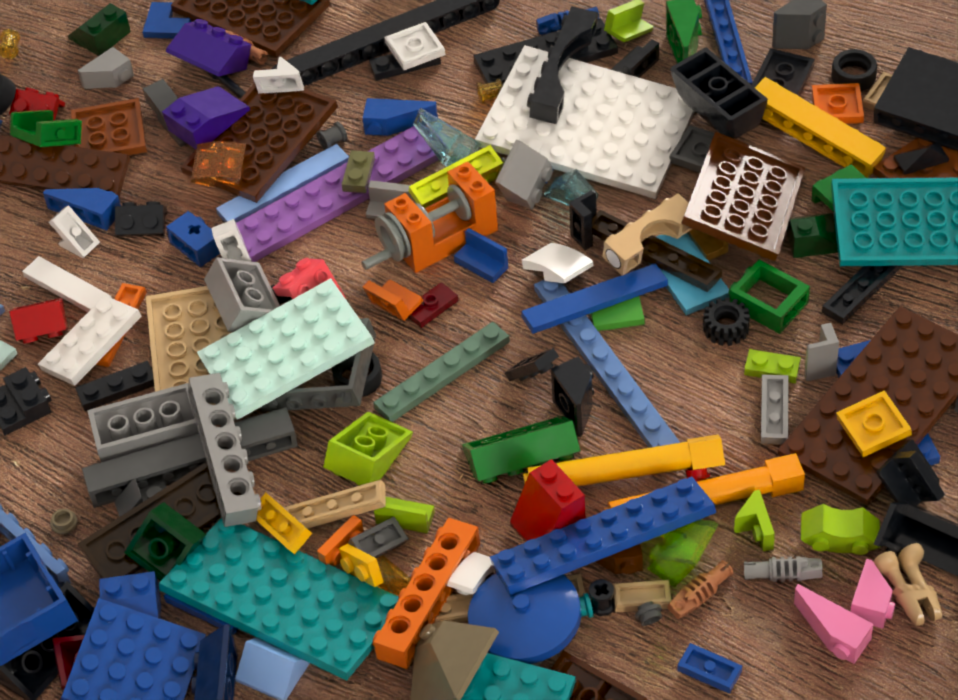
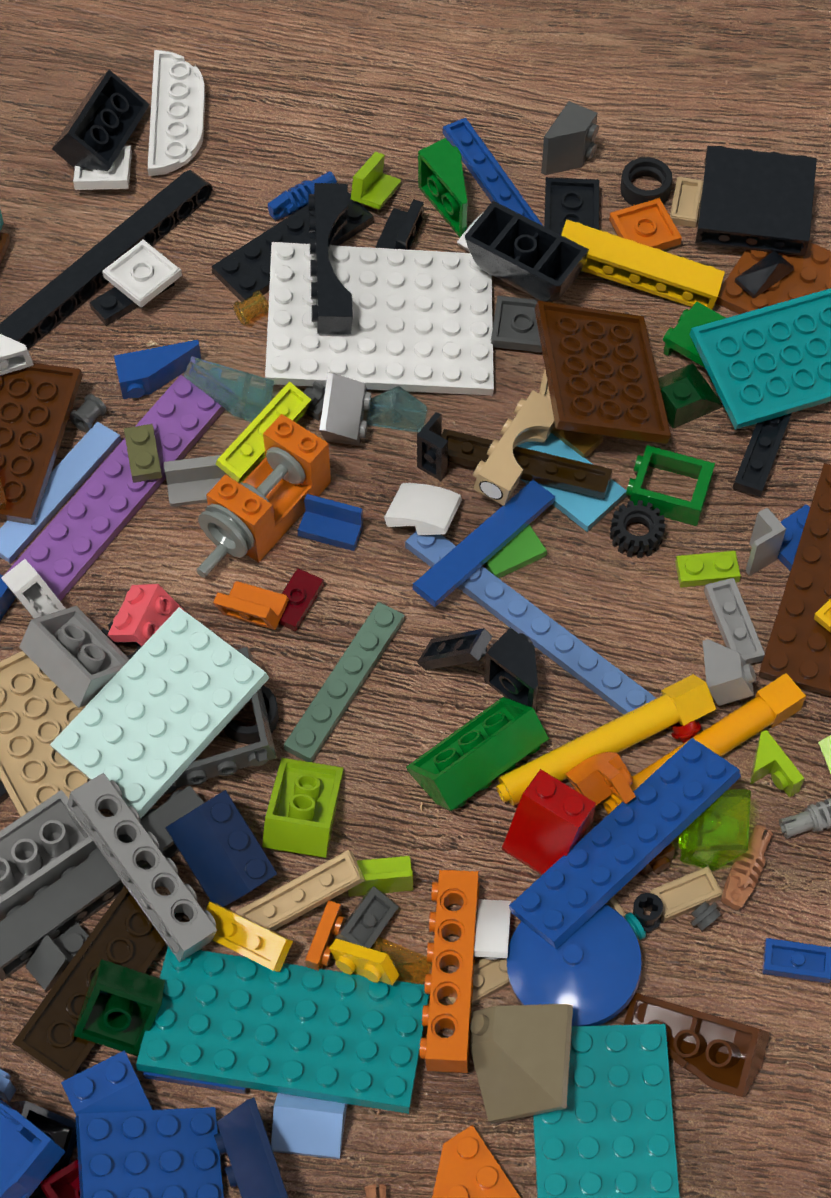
camera: 25 degrees left, 10 degrees up
(288, 457) = (221, 850): none -> dark blue slope
(606, 487) = (601, 777): none -> orange brick
(745, 441) = (727, 673): none -> light grey slope

